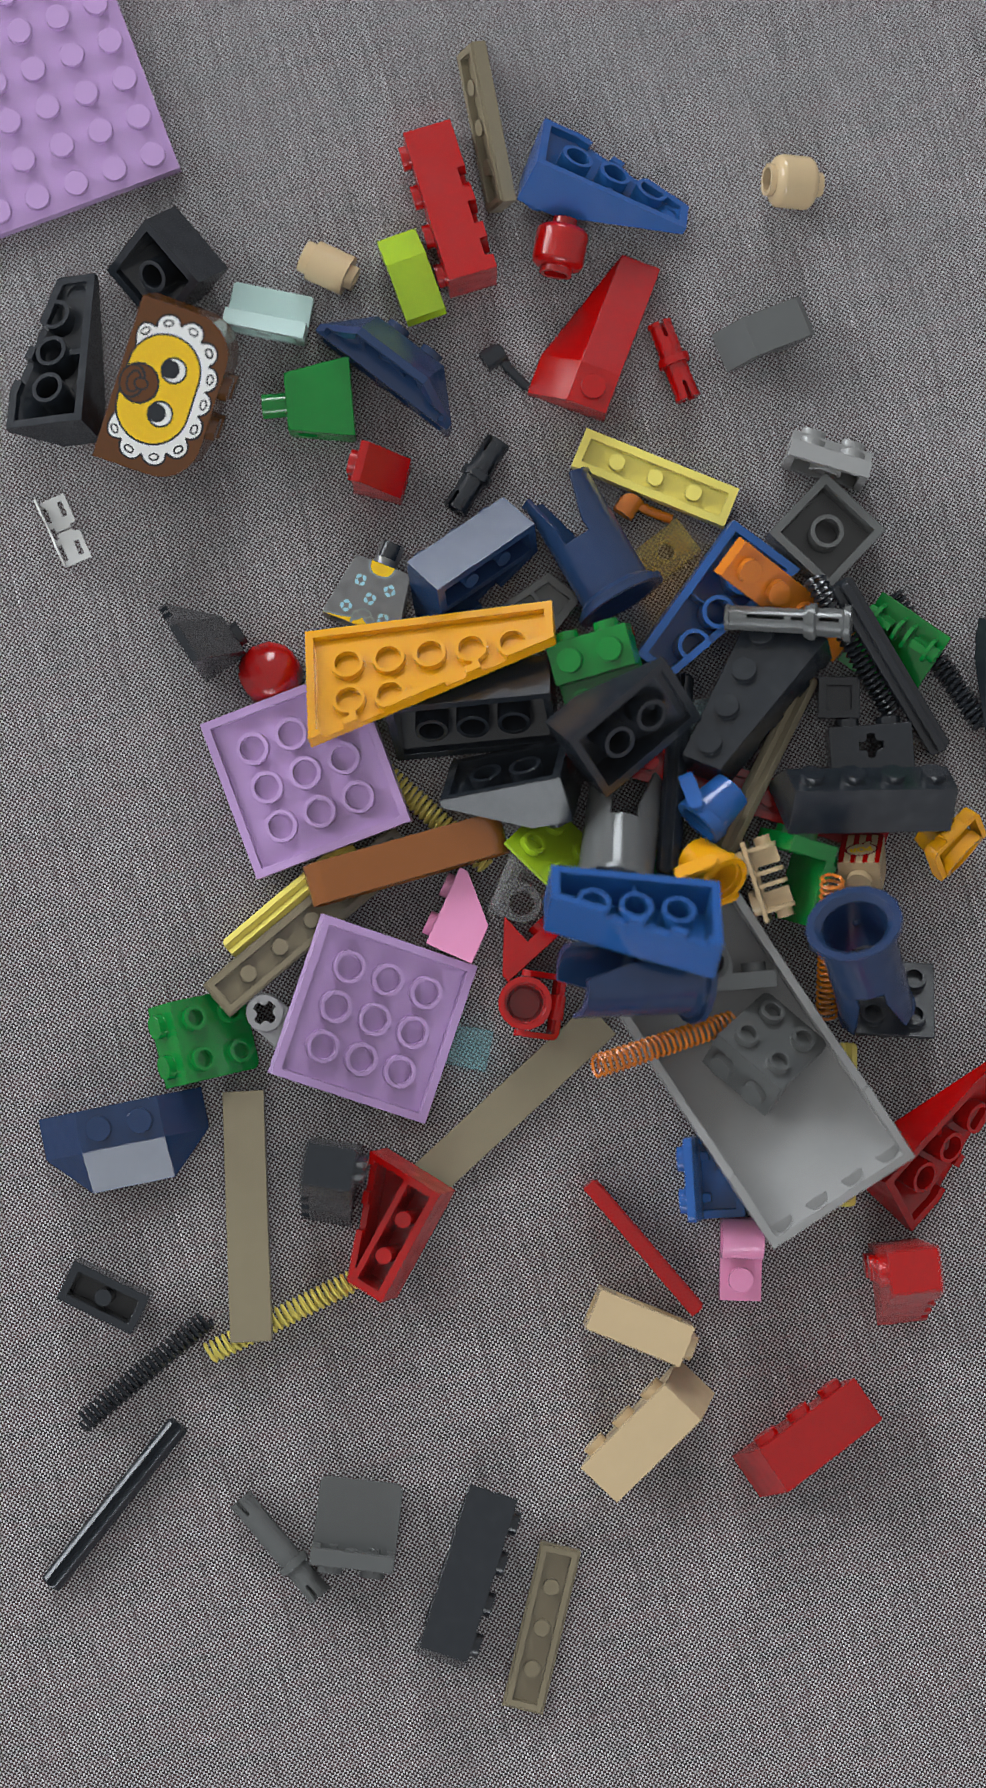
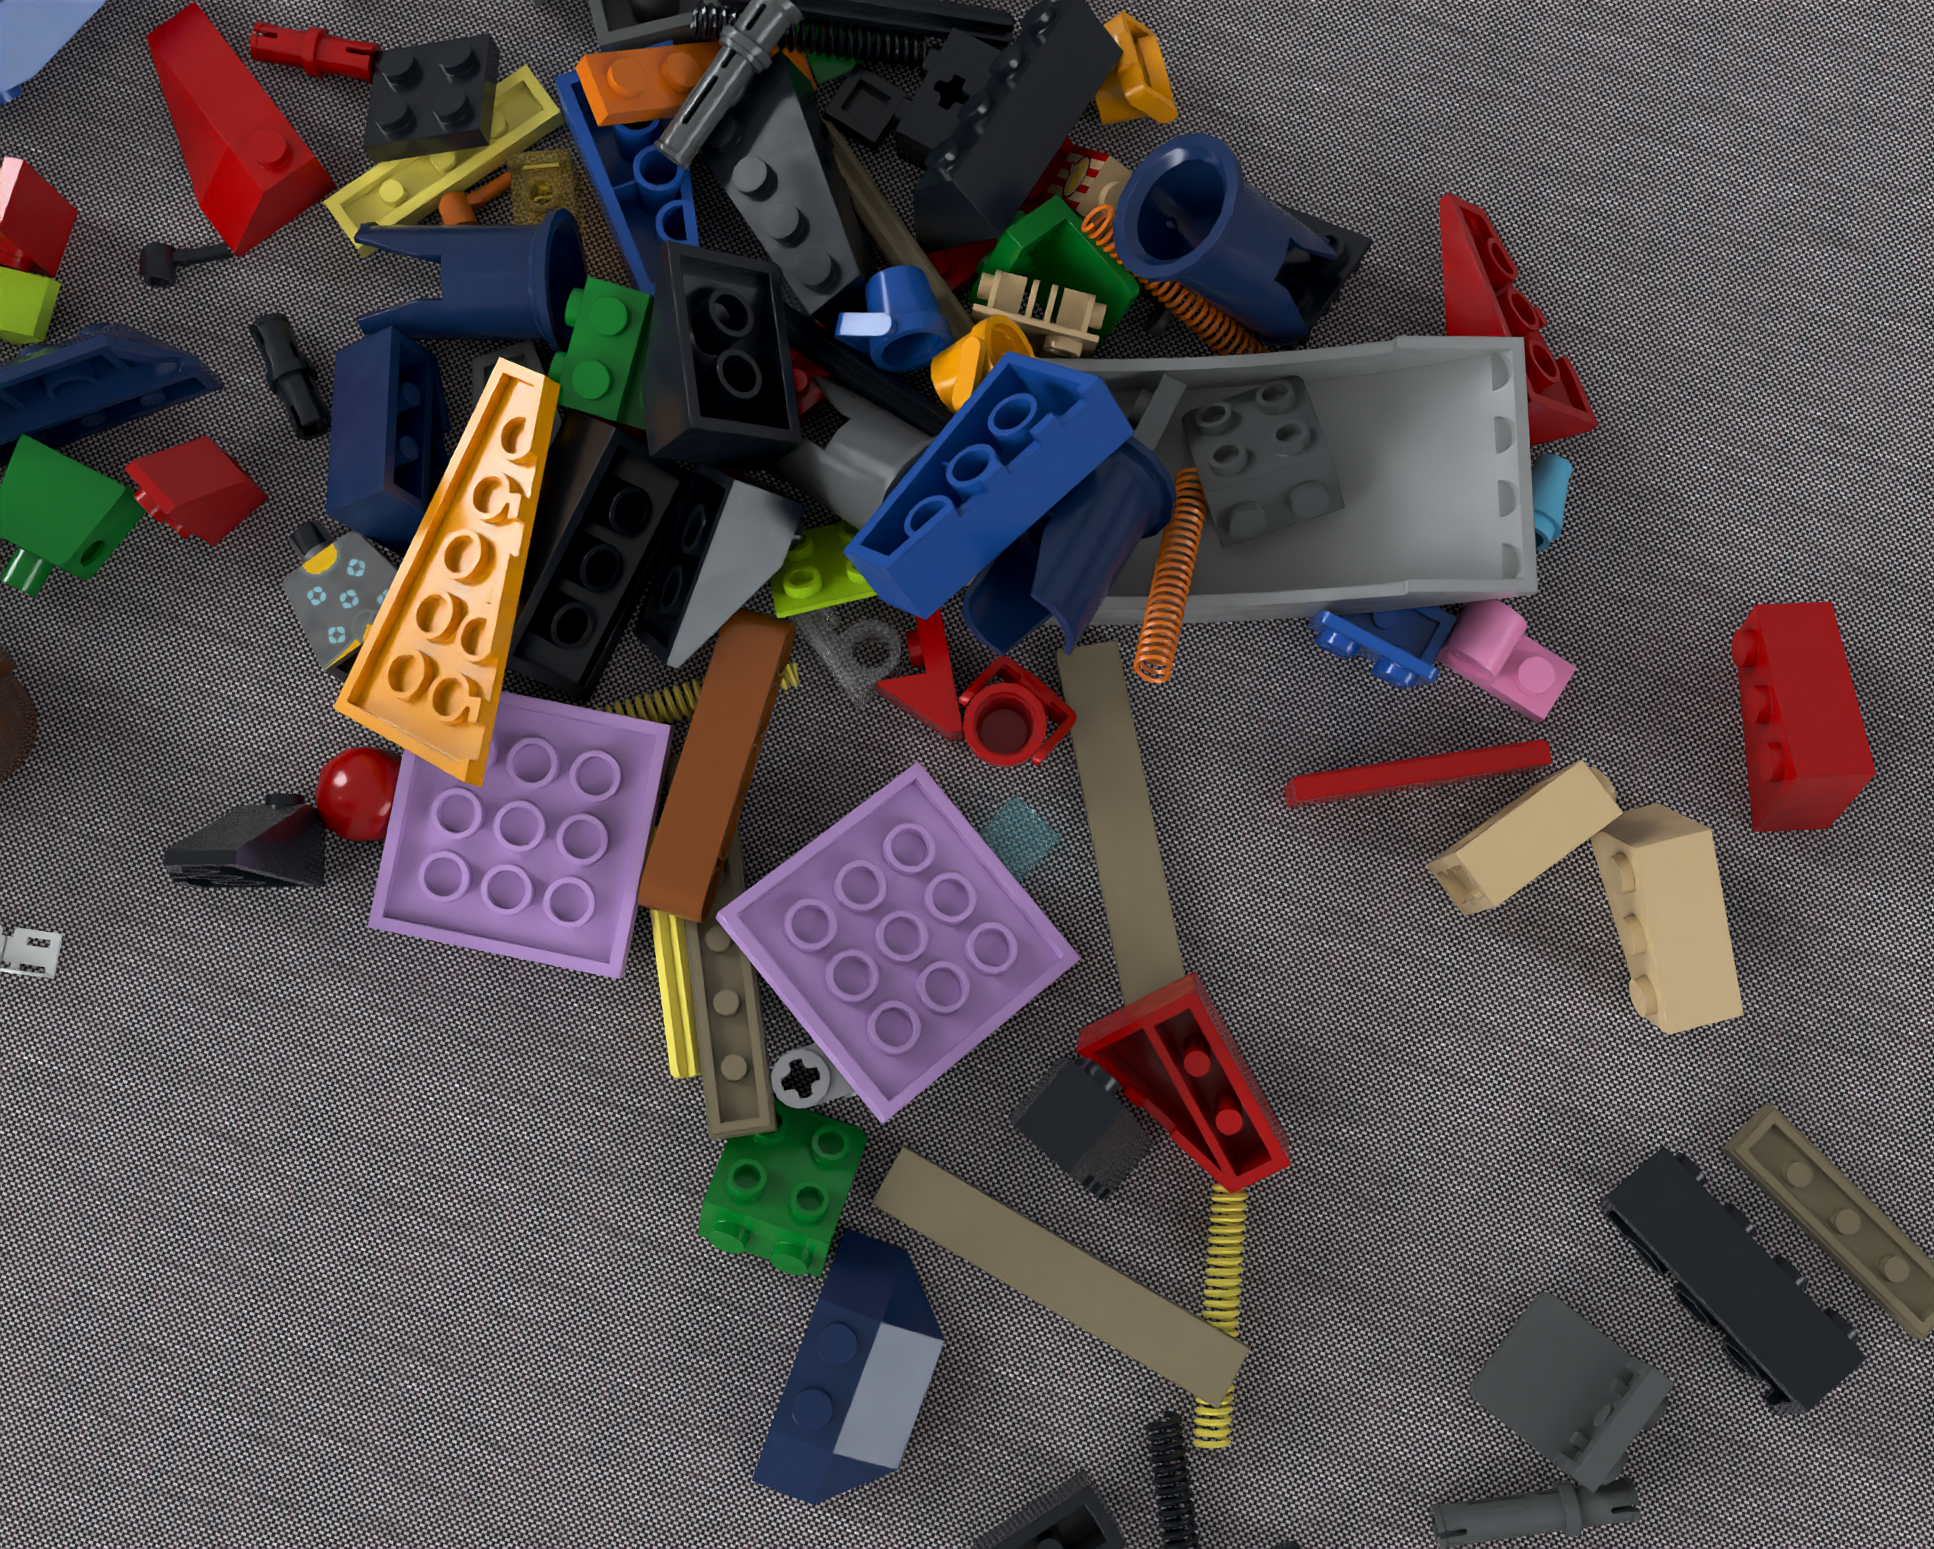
camera: 55 degrees left, 5 degrees down
(461, 920) = (846, 745): bright pink slope -> none
(560, 247) = (78, 96): red head -> none
(685, 449) = (432, 98): none -> black plate
(845, 1224) = (1549, 489): none -> medium azure cone
(904, 1279) = (1670, 446): red wedge -> none

